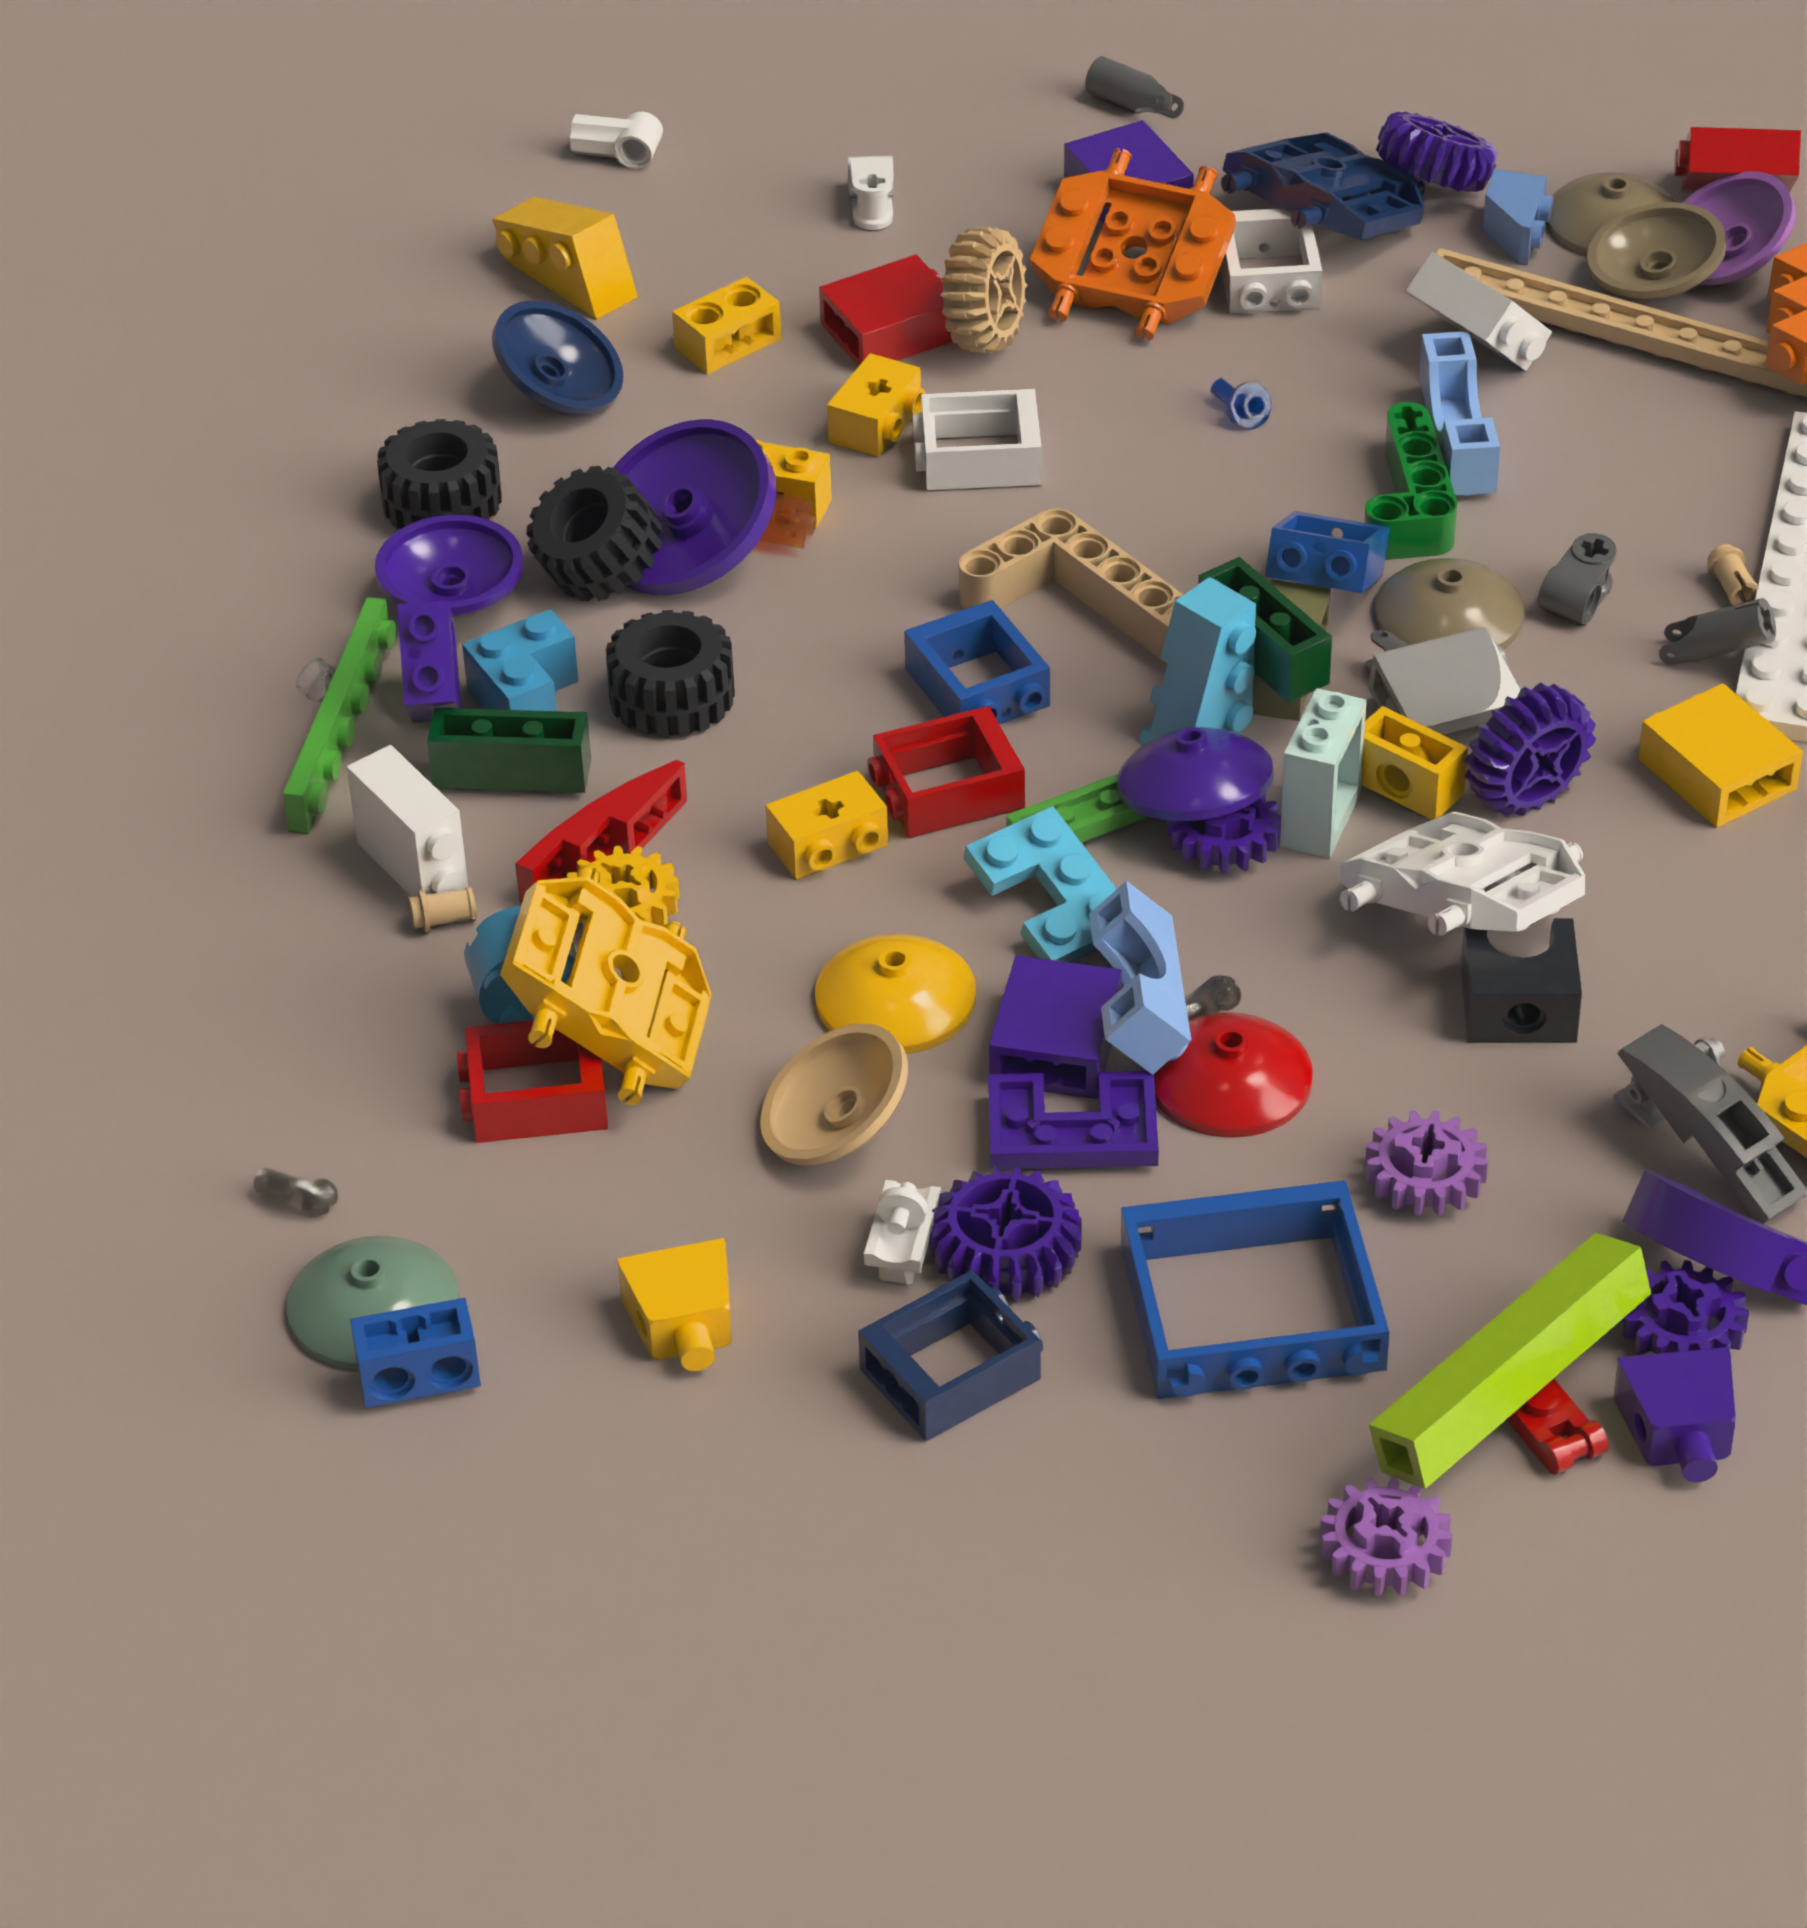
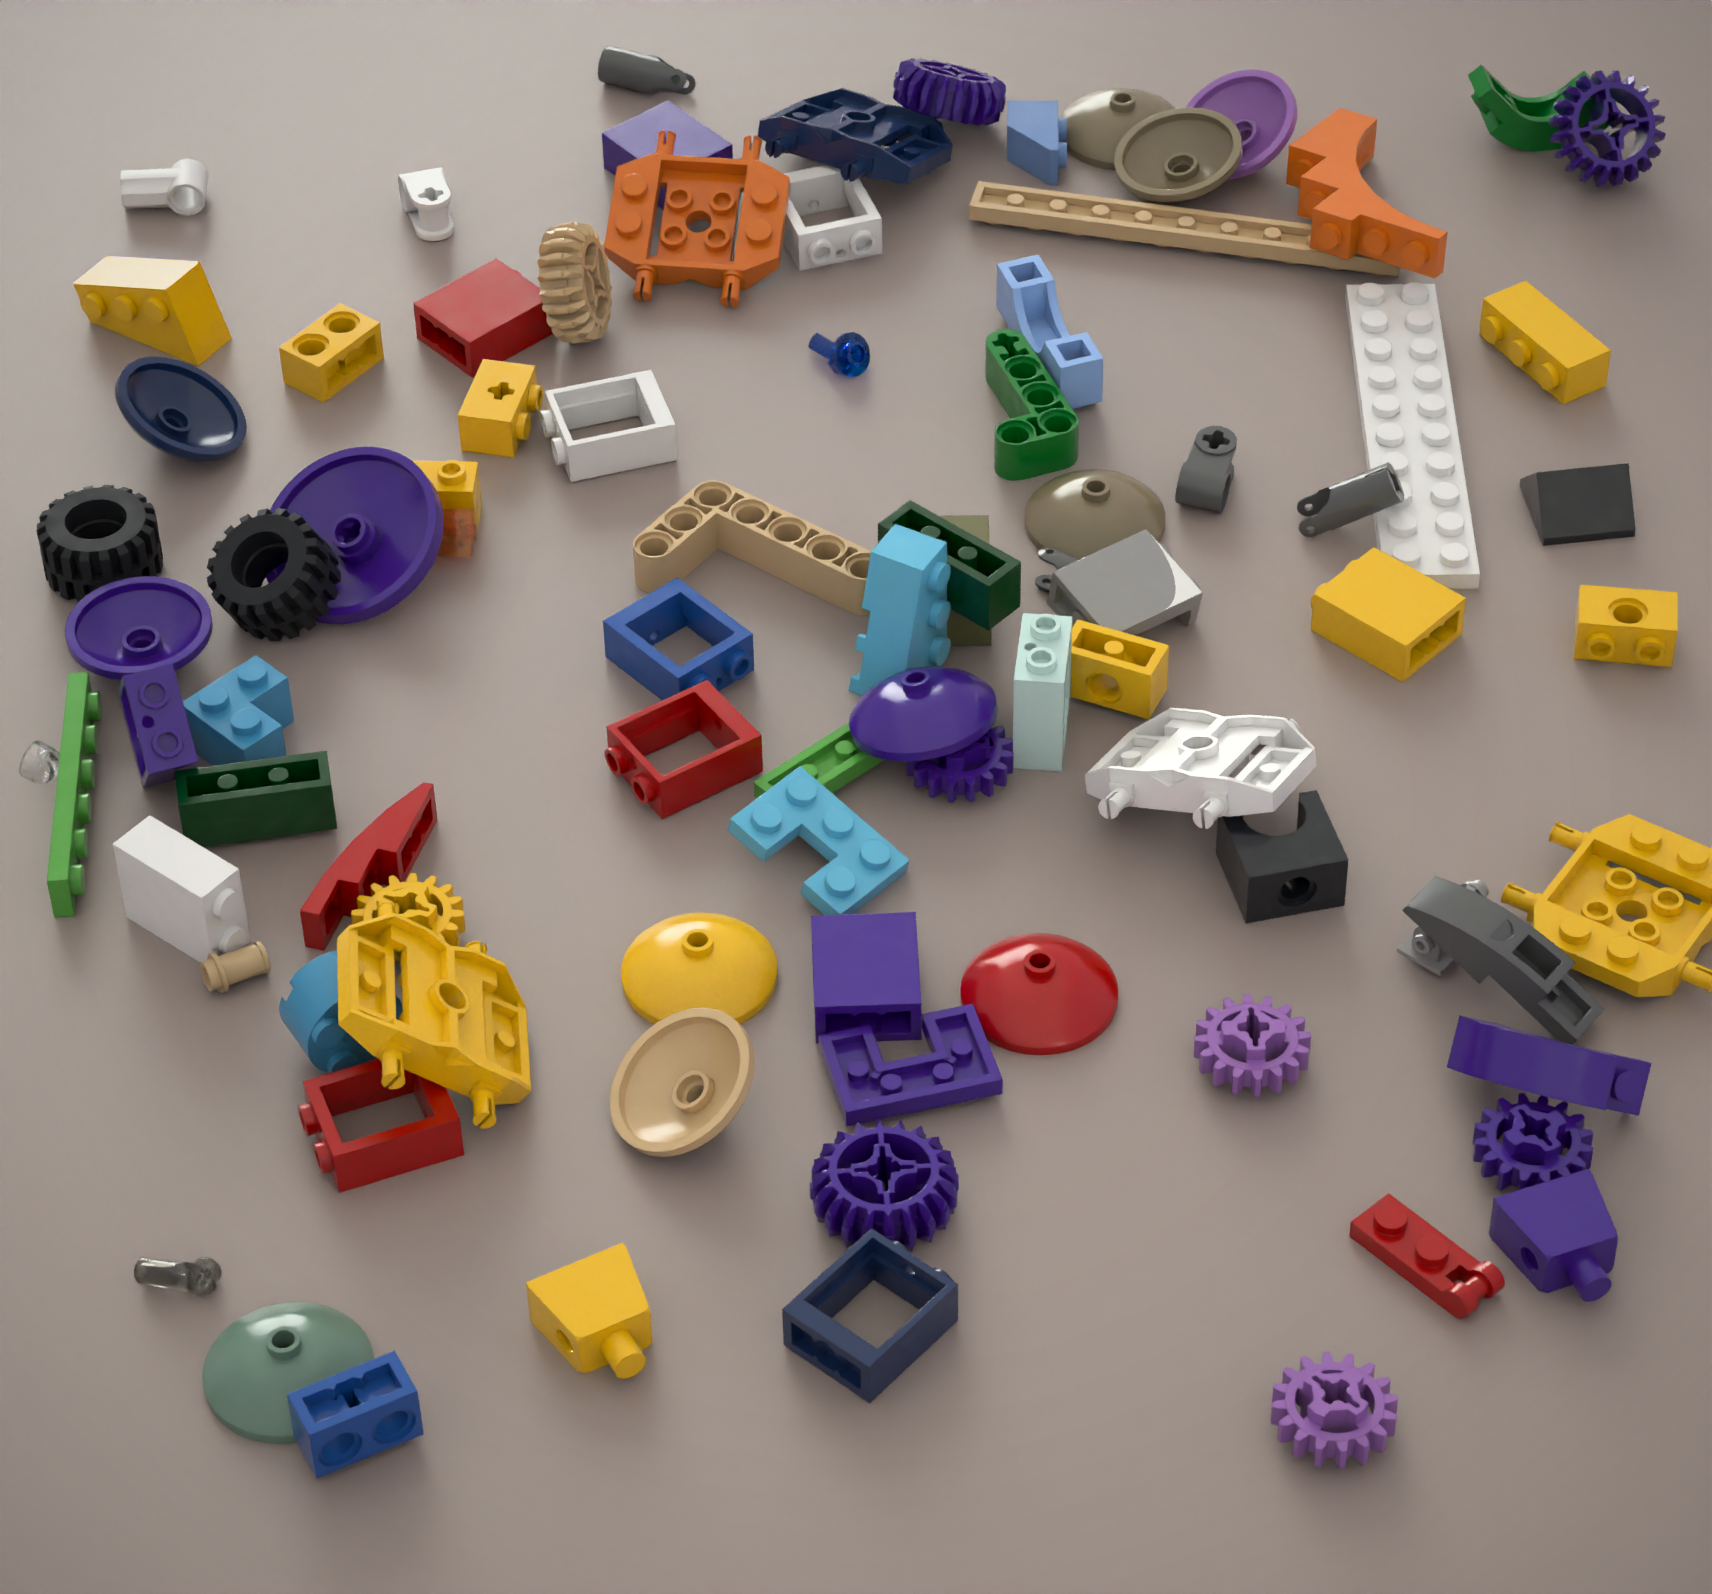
camera: 15 degrees left, 0 degrees up
(670, 673) = (388, 698): black tyre -> none
(826, 824) = (584, 820): yellow brick -> none
(901, 1231) = (787, 1202): white hips -> none
(1150, 1011) = (956, 947): light blue arch -> none
(1213, 996) = (1002, 921): clear smoke arm -> none
(1247, 1222) = (1112, 1130): blue window -> none
(1309, 553) = (967, 490): blue window -> none
(1480, 310) = (1034, 230): white brick -> none
(1509, 1360) = (1399, 1220): lime brick -> none
(1530, 749) = (1223, 638): dark purple gear -> none
(1719, 152) = (1206, 57): red brick -> none
(1728, 566) = (1334, 437): tan pin -> none

